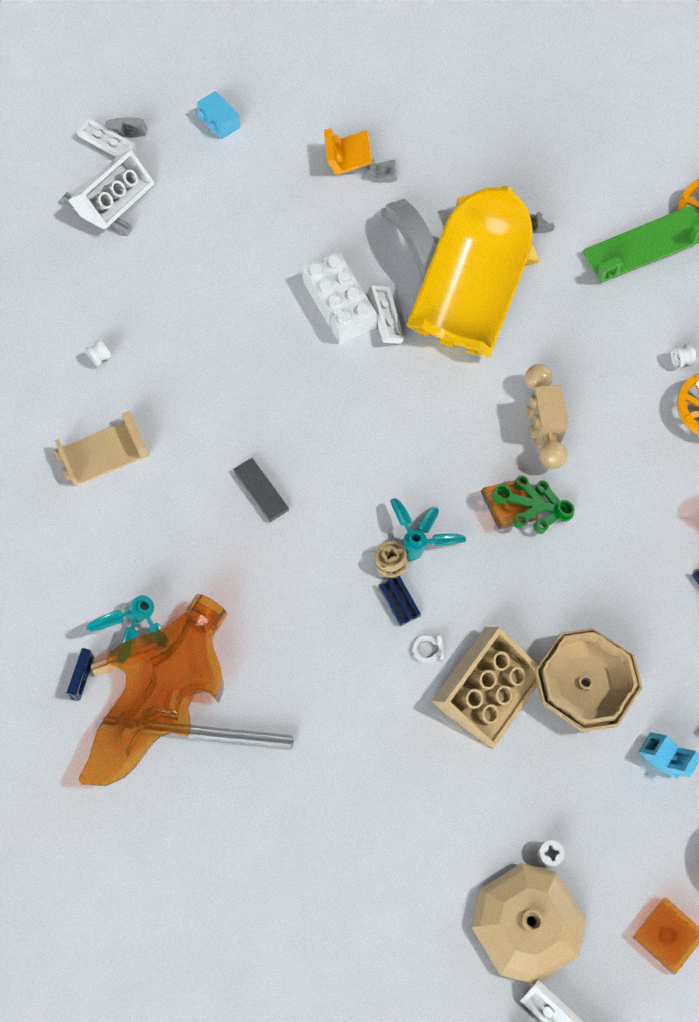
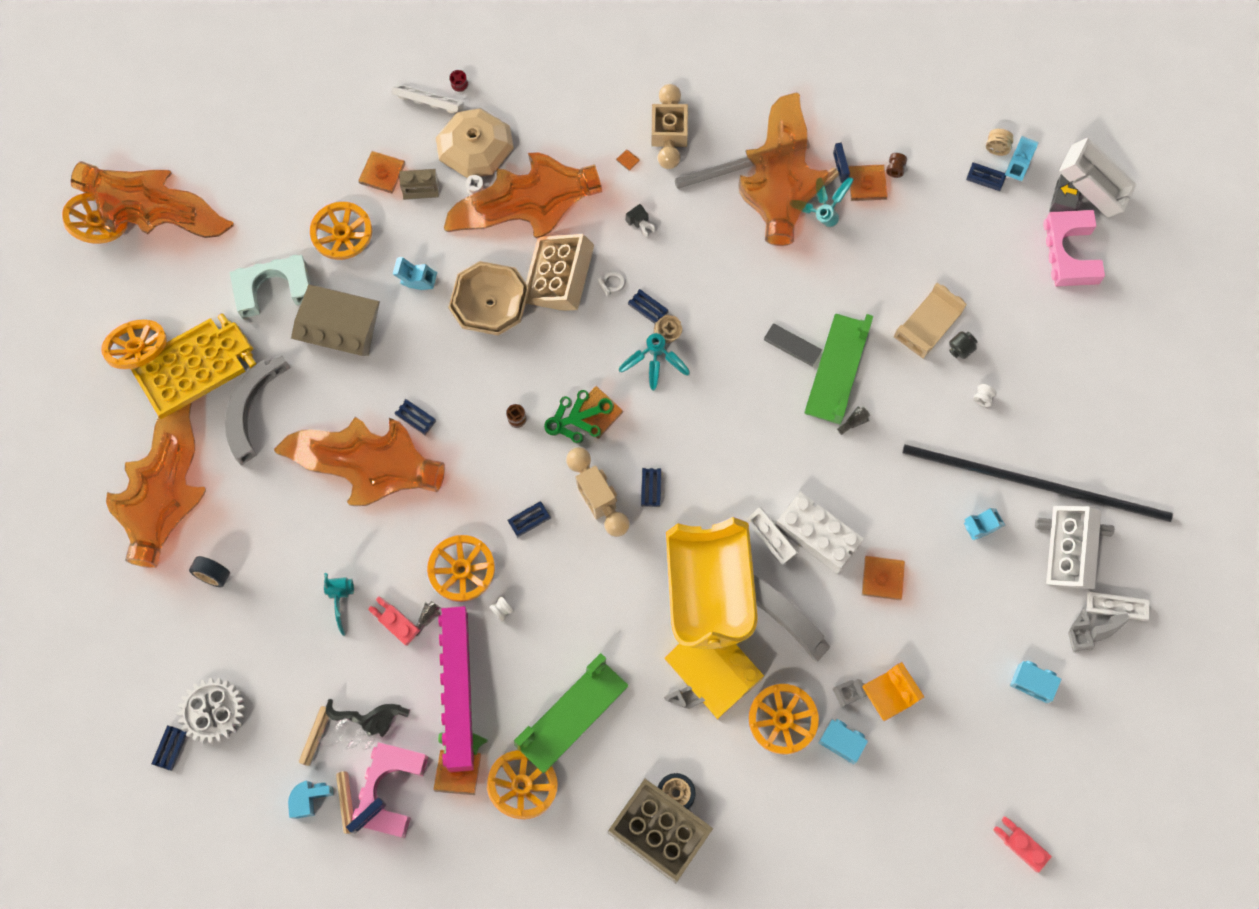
camera: 160 degrees right, 5 degrees up
(18, 641) = (896, 166): none -> reddish brown wheel
(64, 636) = (868, 183): none -> clear orange plate
(85, 408) = (963, 345): none -> pearl dark grey head
(107, 264) = (1038, 483): none -> black piece
(153, 137) = (1080, 634): none -> light grey slope
(180, 244) = (984, 523): none -> medium azure brick
(226, 444) = (838, 368): none -> bright green bracket
(237, 385) = (857, 418): none -> clear smoke cone
(262, 822) = (669, 126): none -> tan brick
(300, 241) = (883, 578): none -> clear orange plate
(302, 24) = (1023, 845): none -> coral hinge
(335, 807) = (627, 159): none -> clear orange piece
(359, 712) = (639, 218): none -> pearl dark grey piece
(410, 136) = (843, 741): none -> medium azure brick
(454, 170) = (786, 713): none -> light orange wheel
(480, 802) = (534, 197): none -> clear orange piece
(491, 396) = (651, 471): none -> dark blue tile
(575, 157) = (679, 782): none -> wheel
(598, 540) = (519, 418): none -> reddish brown wheel
(606, 129) = (660, 830): none -> dark tan slope
(624, 432) = (518, 533): none -> dark blue tile
(625, 889) = (419, 184): none -> dark tan window

